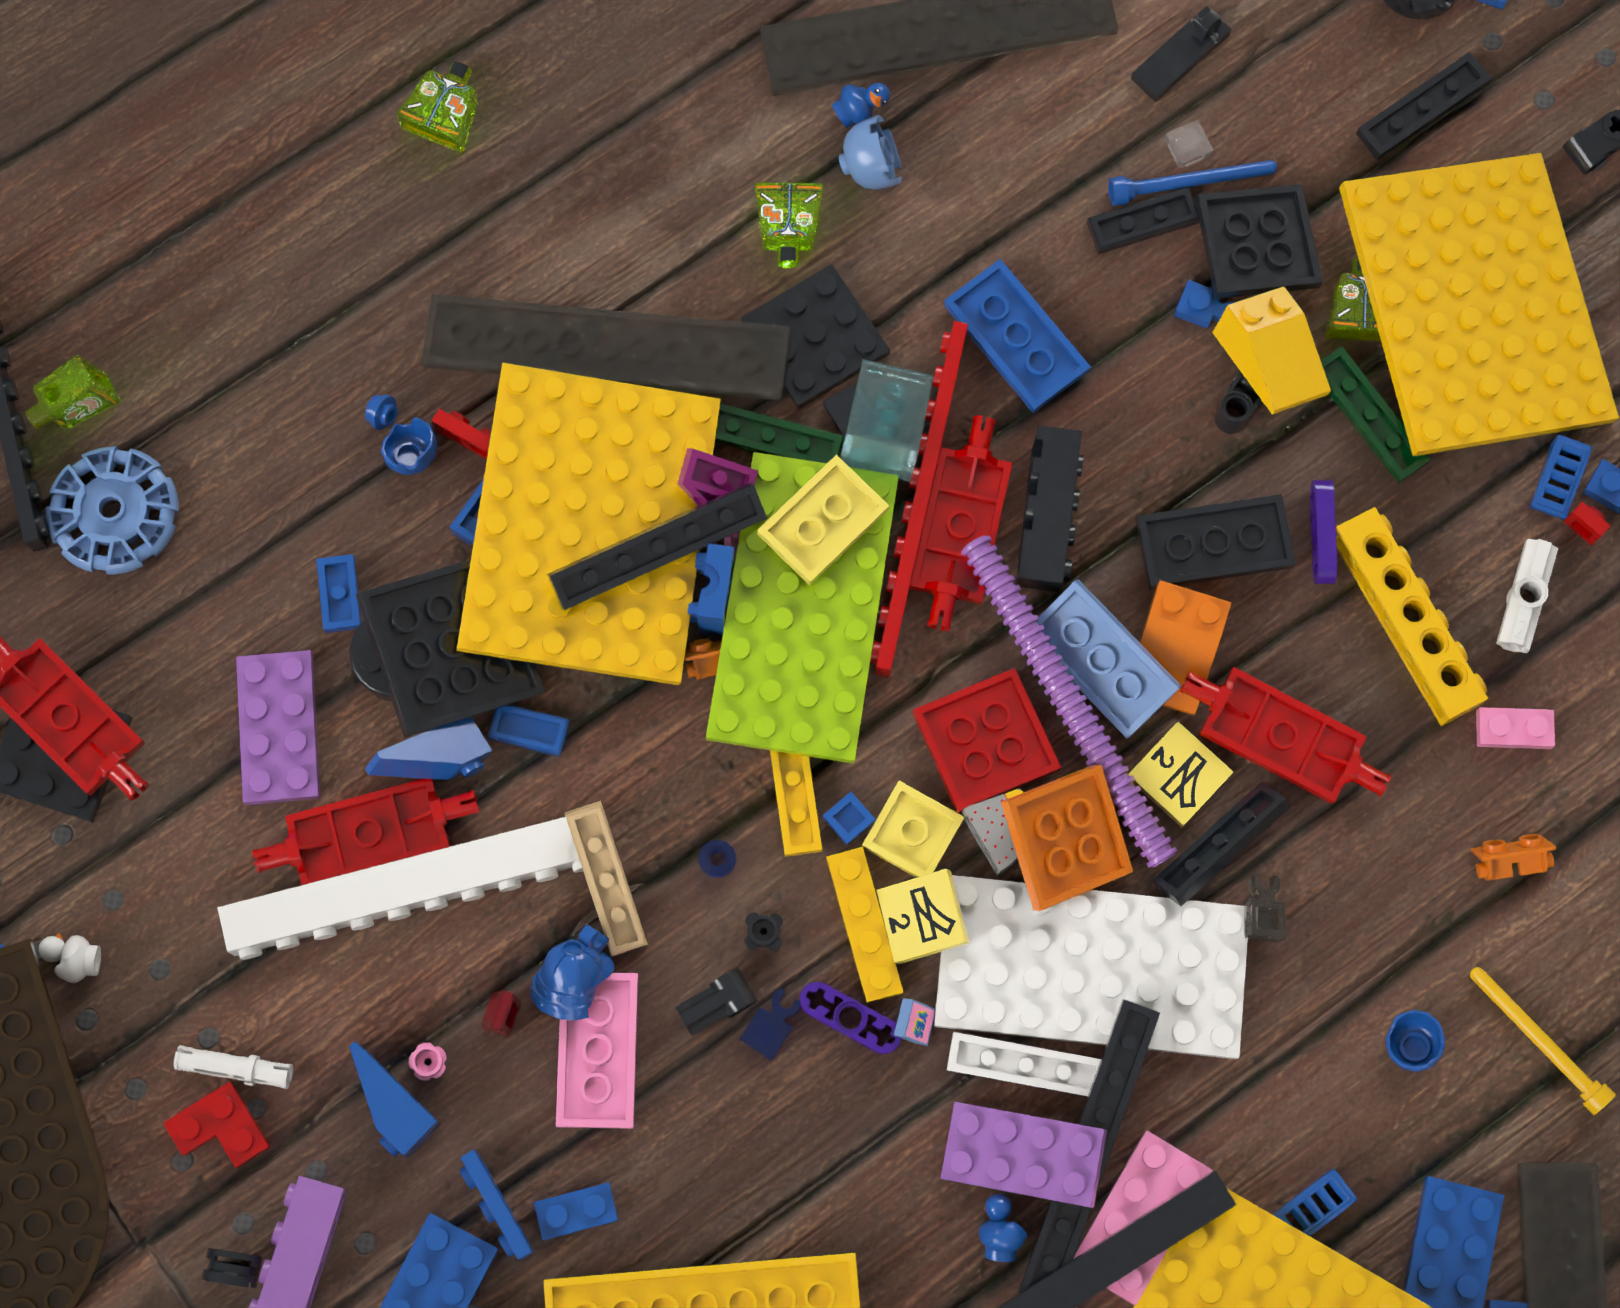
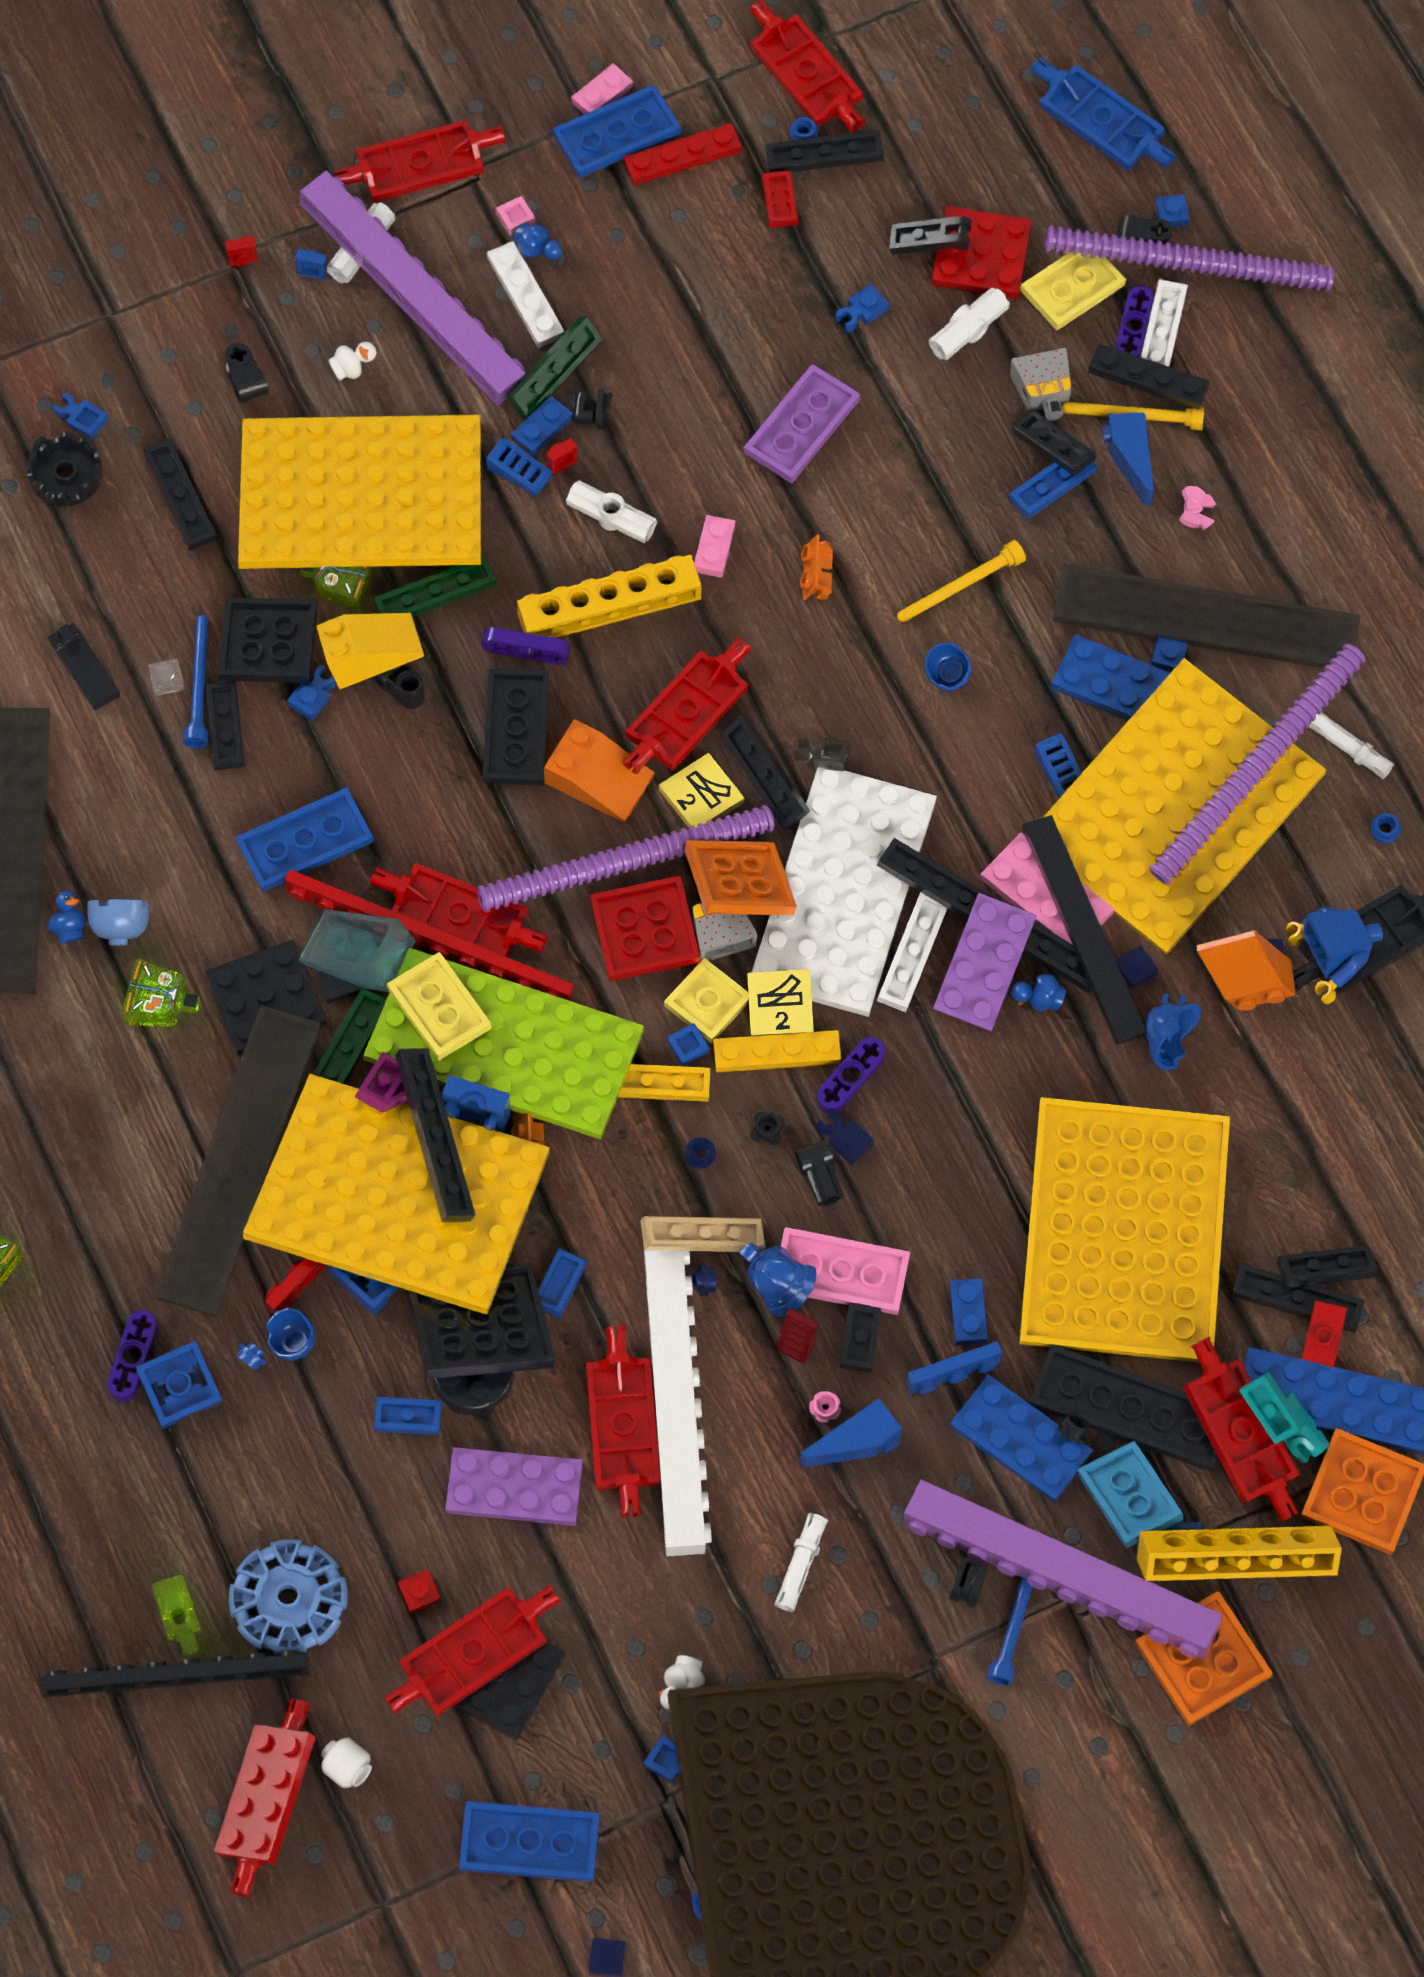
camera: 80 degrees left, 10 degrees down
(140, 648) = (419, 1591): none -> red plate
(220, 1116) = (840, 1579): red plate -> none
(337, 297) = (131, 1331): none -> dark purple beam
(338, 330) = (173, 1371): none -> blue brick
(435, 754) = (571, 1348): slope -> none
(517, 1087) = (860, 1338): none -> black plate
(557, 892) = (704, 1280): none -> clear blue plate
(915, 1022) = (864, 1025): tile -> none
(1049, 509) = (460, 840): black wedge -> none
(1106, 659) = (599, 822): medium blue plate -> none

